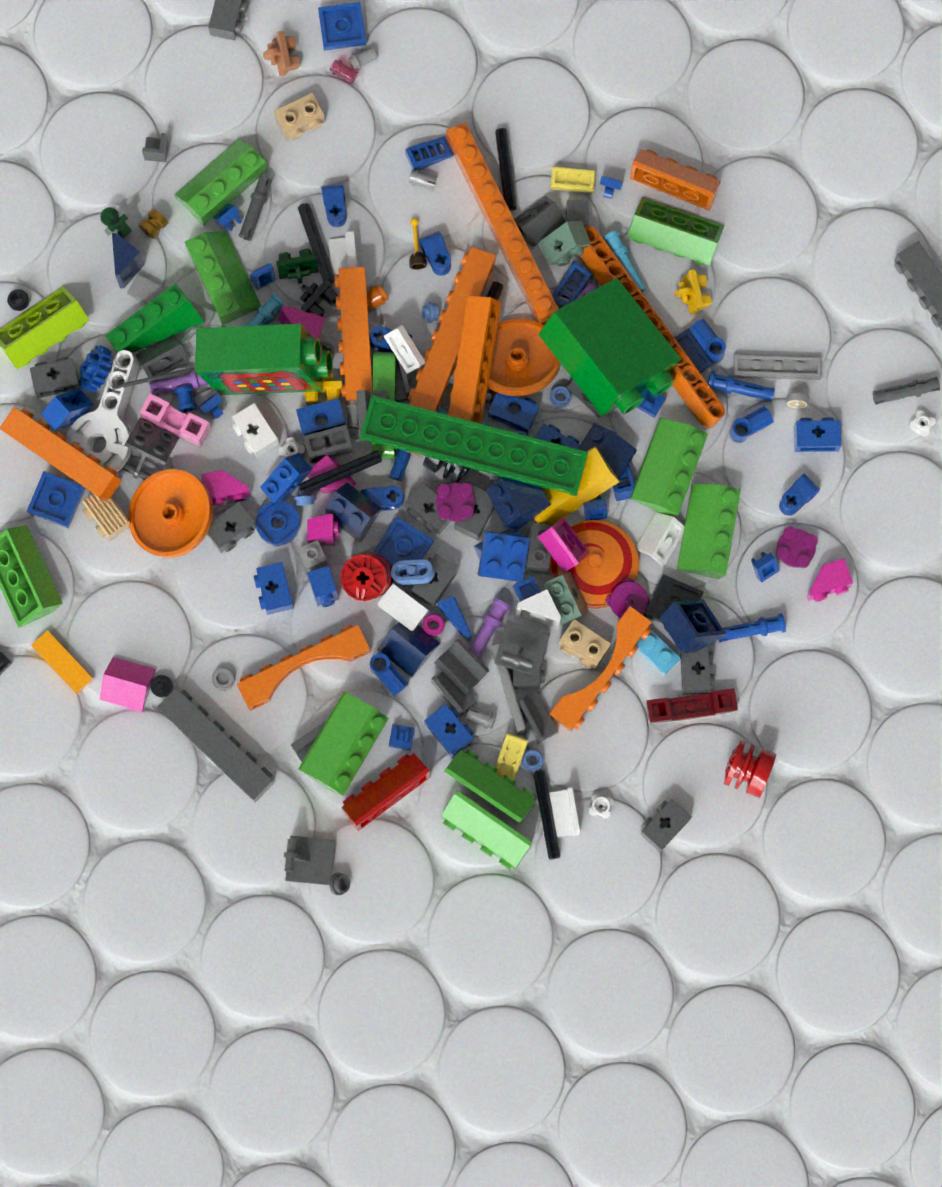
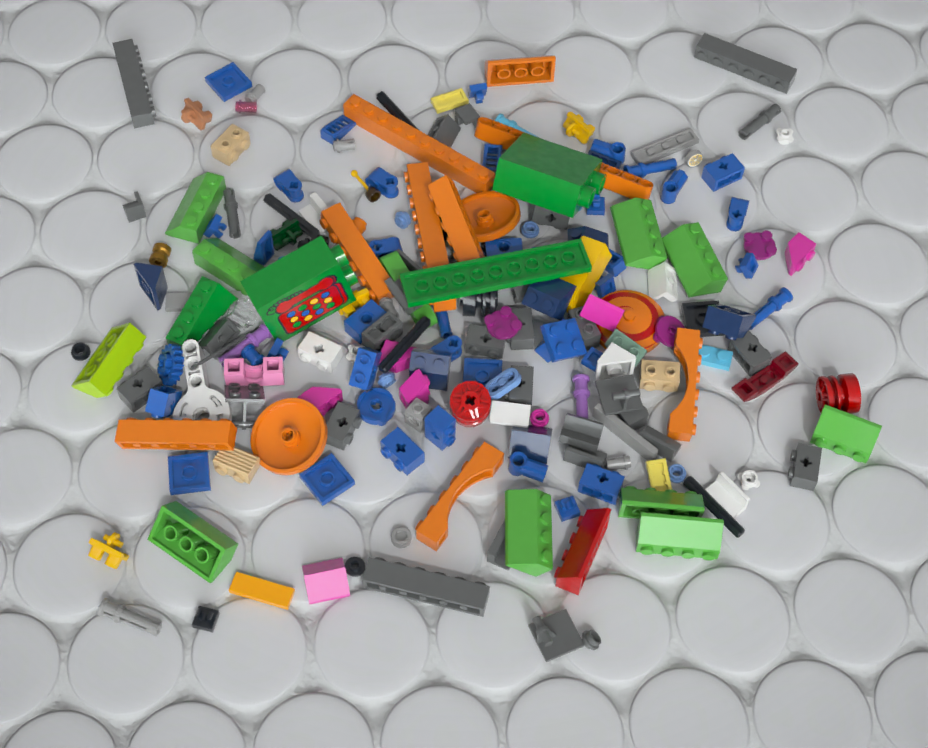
camera: 30 degrees left, 20 degrees down
(115, 224) = (126, 263): dark green hips -> none
(185, 578) = (327, 479): none -> blue plate
(404, 349) = (402, 241): white panel -> none
(452, 612) = (552, 403): blue slope -> none
(565, 243) = (471, 133): sand green brick -> none
(675, 231) = (541, 99): bright green slope -> none
(726, 816) = (845, 434): none -> bright green slope

